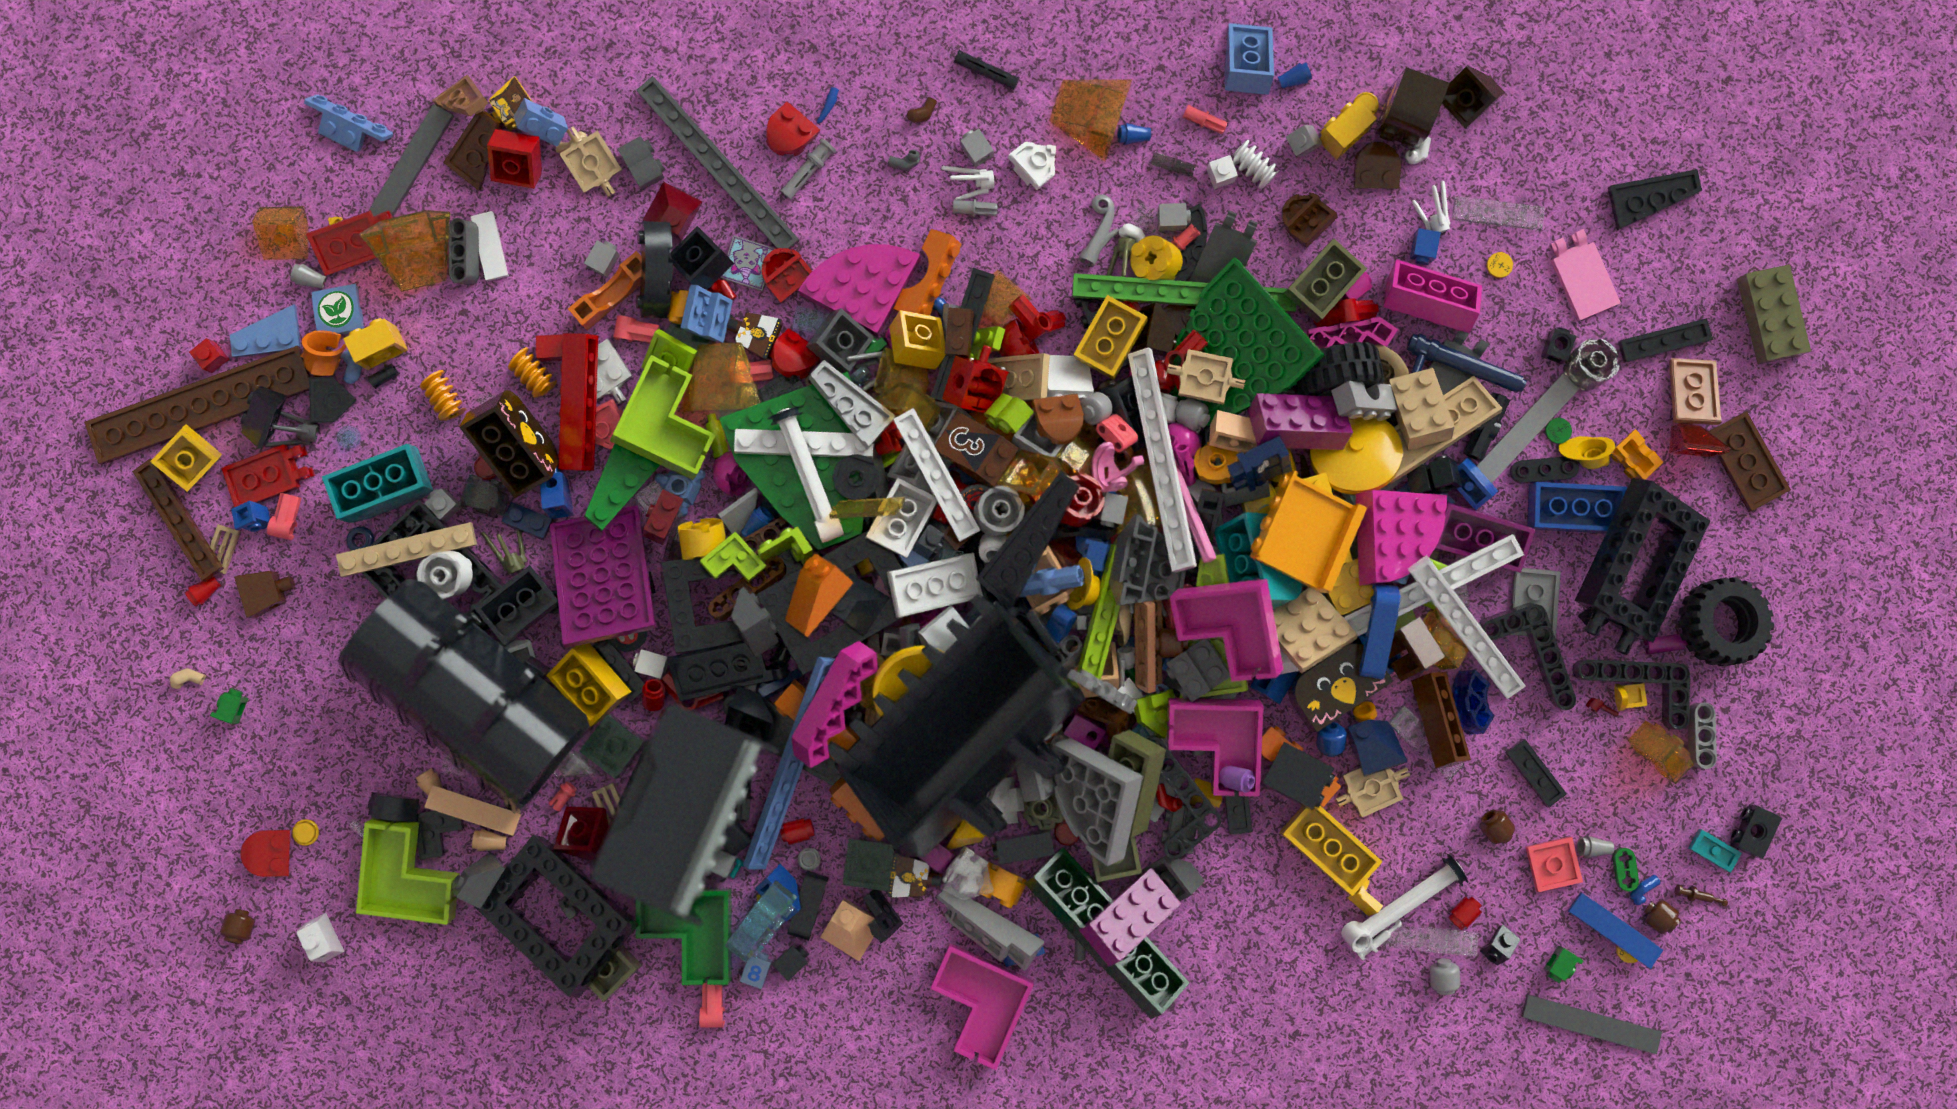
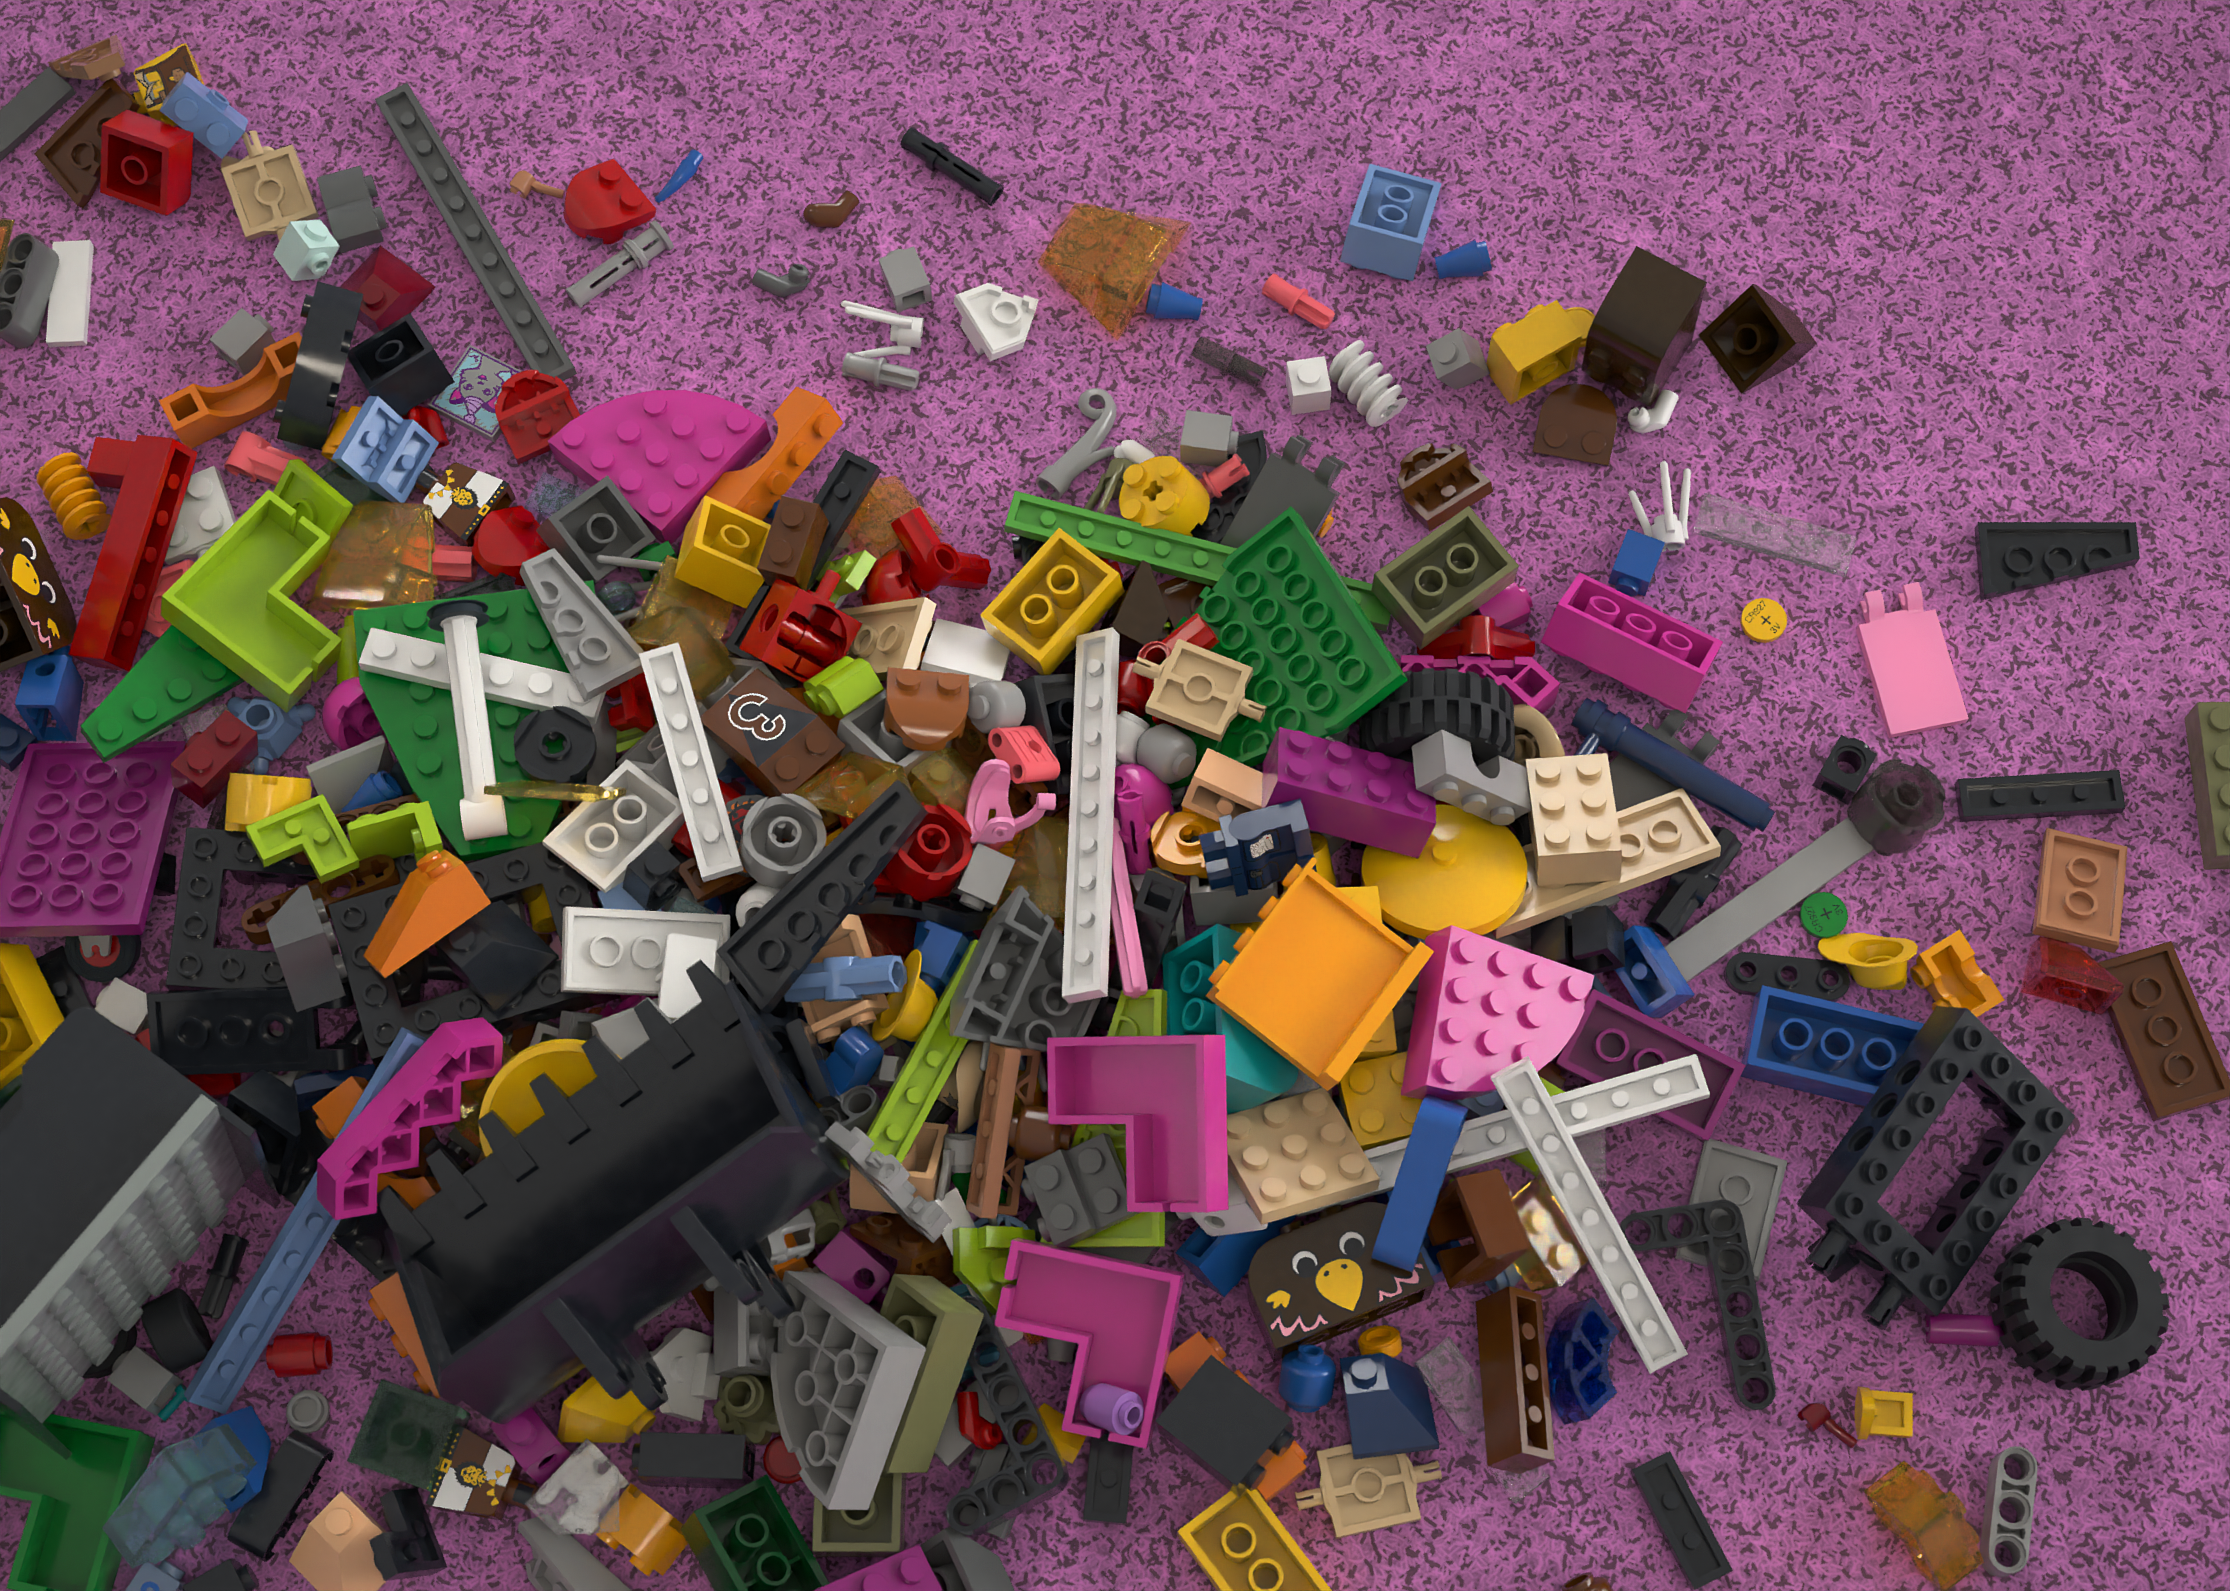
camera: 15 degrees right, 15 degrees down
(623, 195) = (306, 250): none -> light aqua brick
(738, 126) = (525, 182): none -> nougat hand
(962, 590) = (676, 989): none -> white panel
(1642, 675) = (1911, 1380): black beam -> none

